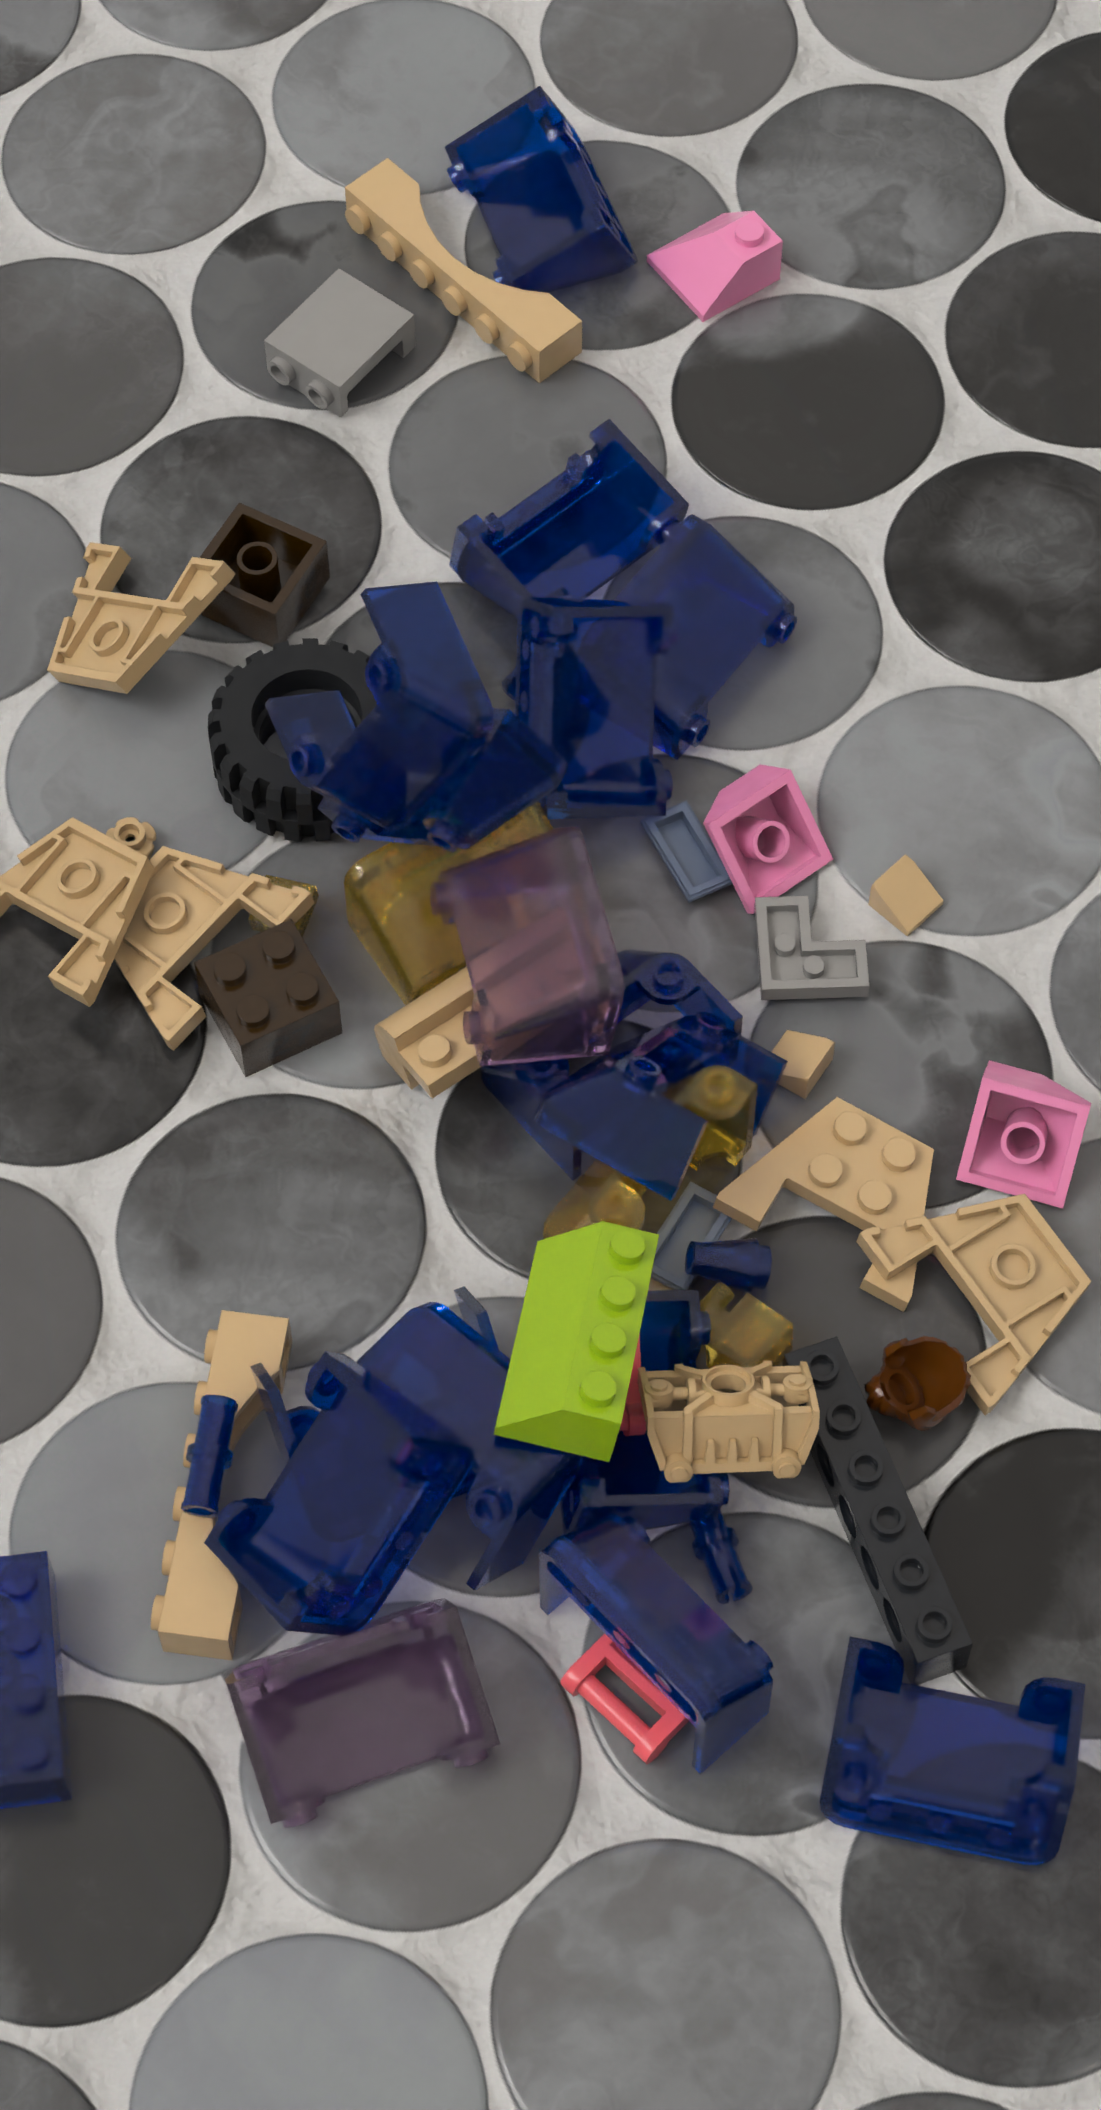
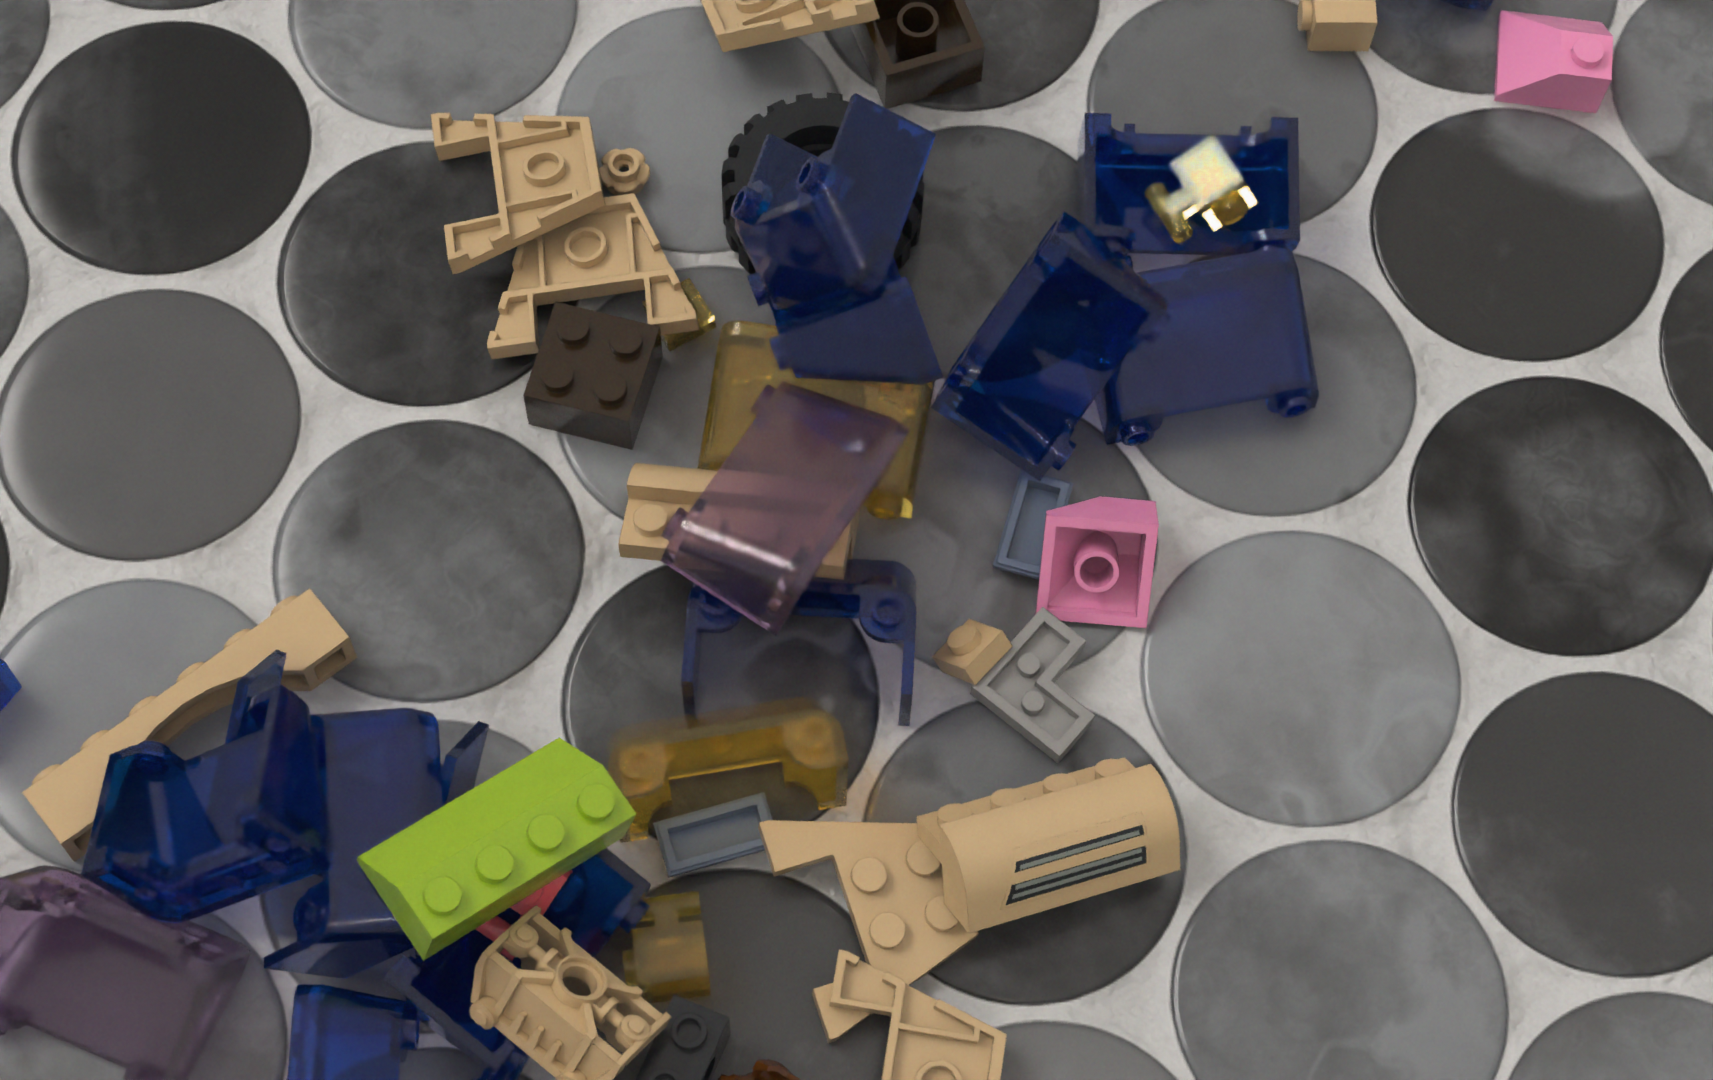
camera: 40 degrees right, 5 degrees up
(209, 1456) = (179, 692): clear blue pin -> none
(582, 517) = (1209, 186): none -> clear yellow brick
(619, 1104) = (712, 669): clear blue windscreen -> none
(736, 1263) = (722, 884): clear blue cone -> none
(738, 966) = (972, 651): none -> tan plate
(806, 1058) = (947, 769): tan slope -> none
(904, 896) = (1170, 706): tan slope -> none
(928, 1040) = (1053, 842): none -> tan brick
(1023, 1135) = (1058, 982): bright pink slope -> none

